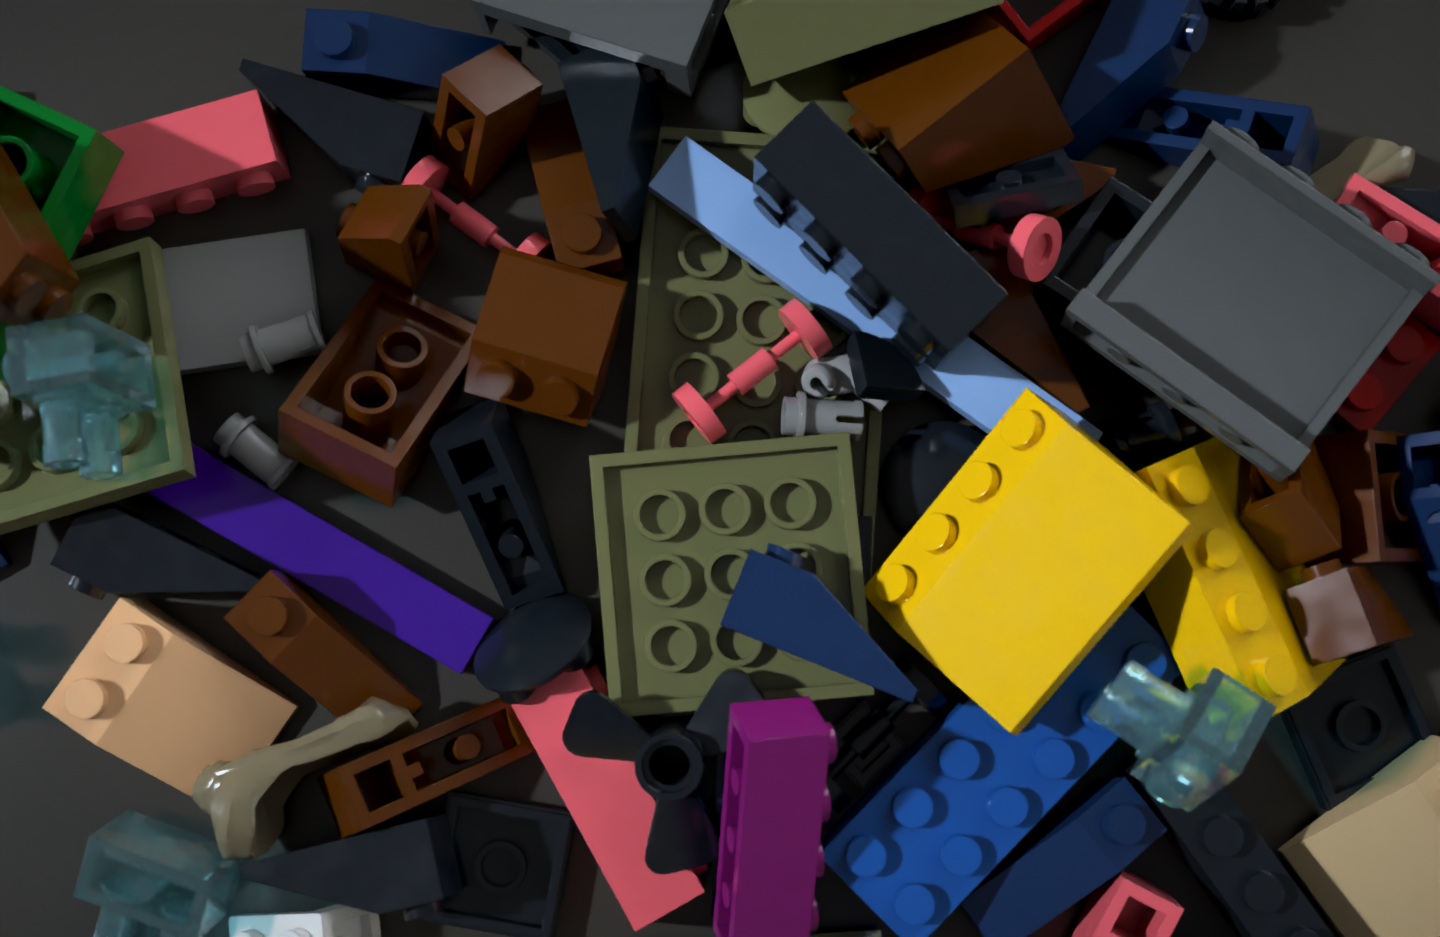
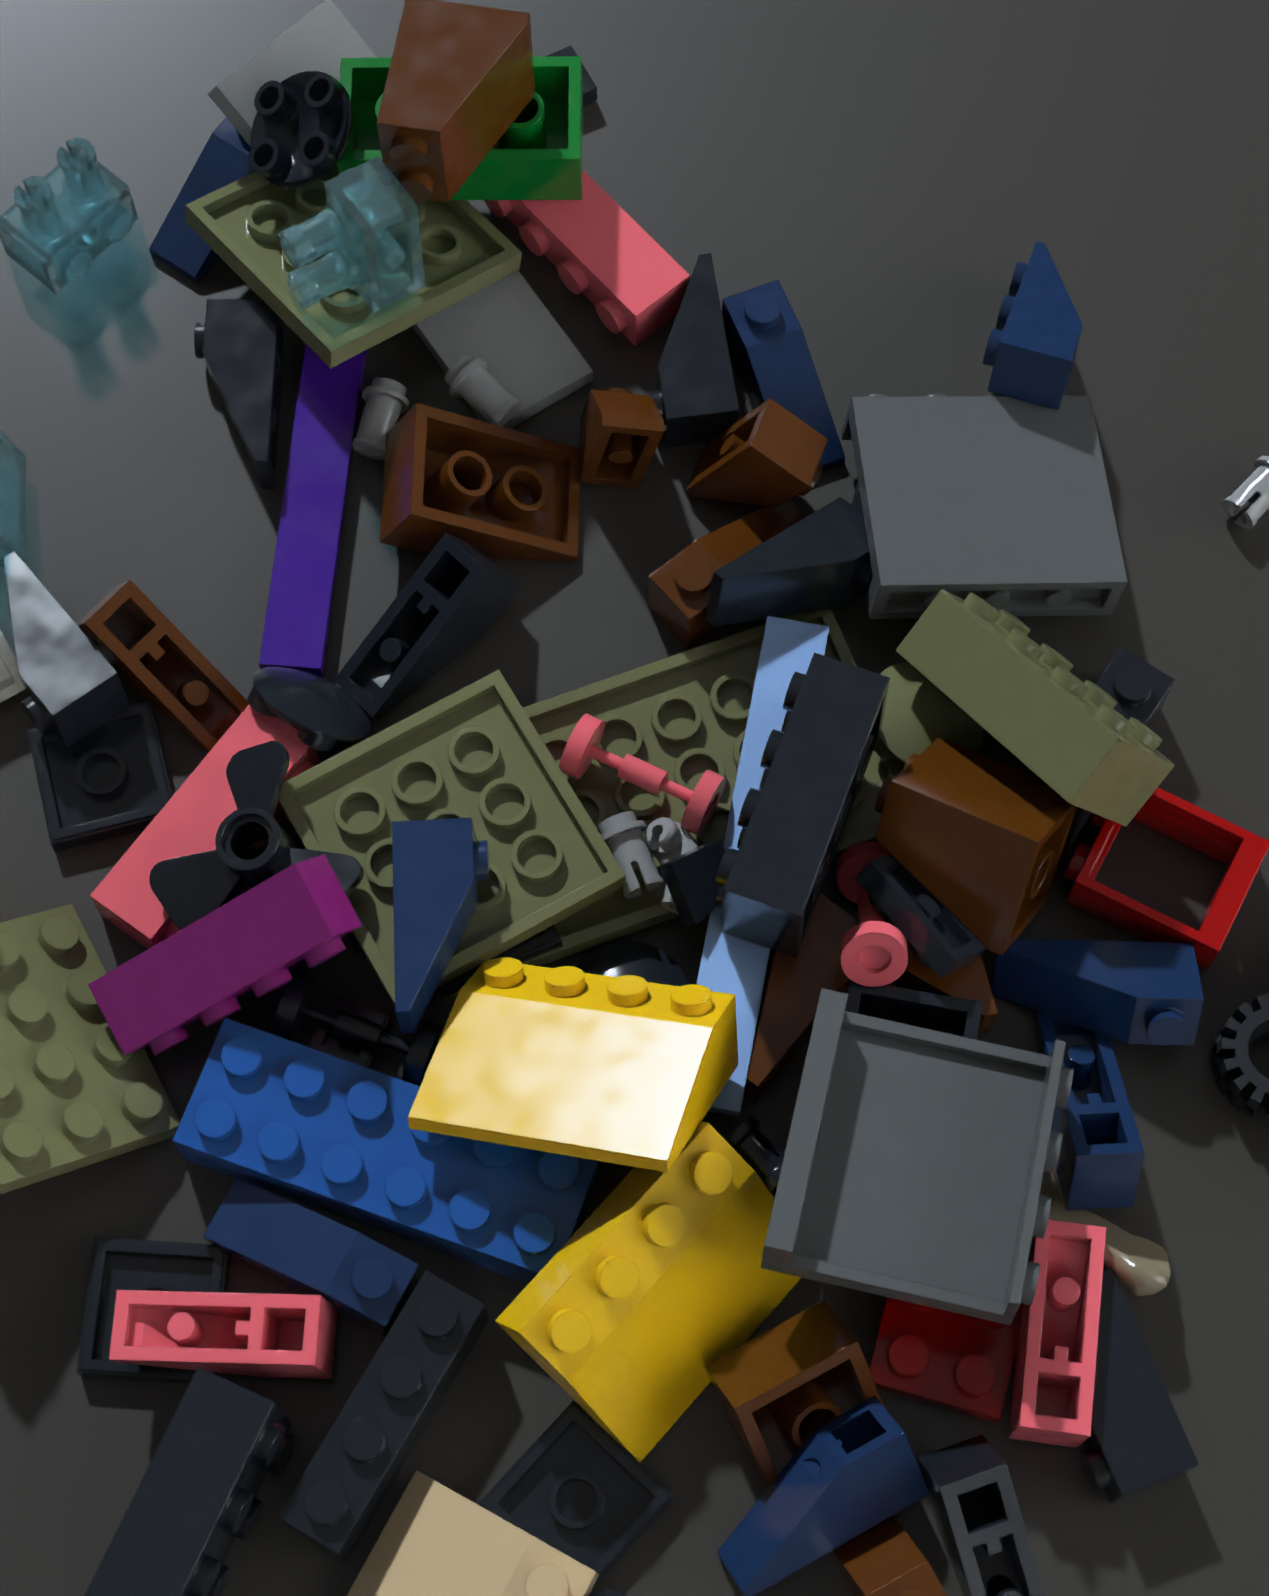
camera: 65 degrees right, 15 degrees down
(166, 697) = (130, 447): light nougat slope -> none
(250, 792) = (85, 540): dark tan hair -> none
(314, 647) = (225, 545): reddish brown slope -> none
(433, 175) = (678, 447): coral wheel -> none
(545, 337) = (587, 593): reddish brown slope -> none
(1184, 740) = (480, 1274): clear light blue brick -> none
(1291, 518) = (753, 1309): reddish brown slope -> none
(1343, 612) = (670, 1410): reddish brown slope -> none

